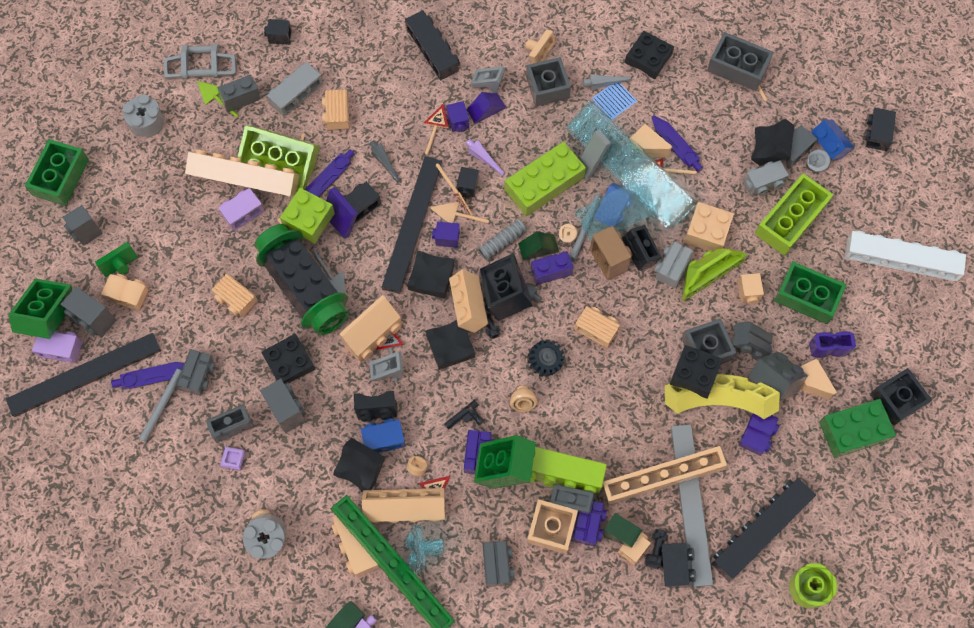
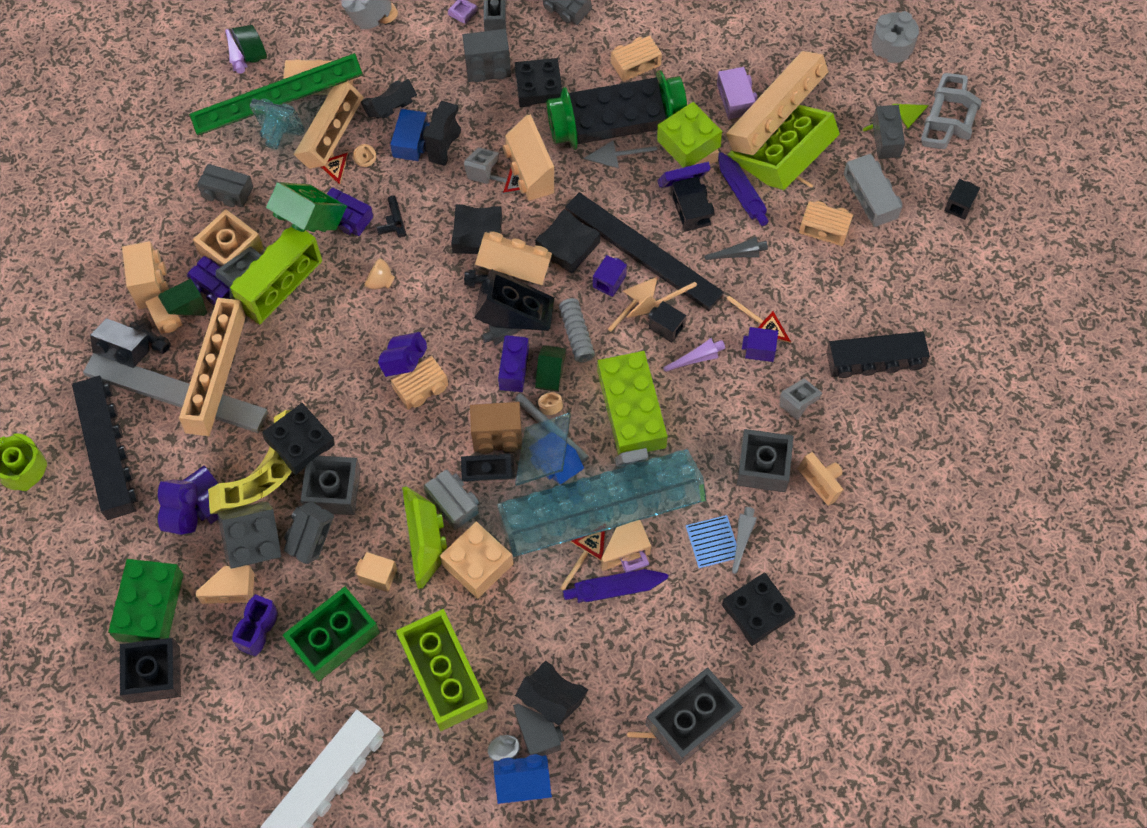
camera: 115 degrees right, 5 degrees down
(485, 106) = (764, 385): dark purple slope -> none
(545, 358) = (410, 313): black wheel -> none
(584, 343) = (402, 354): none -> dark purple brick
(614, 575) = (144, 272): none -> light nougat brick
(765, 178) = (509, 654): light grey brick -> none
(783, 439) = (177, 506): none -> dark purple brick

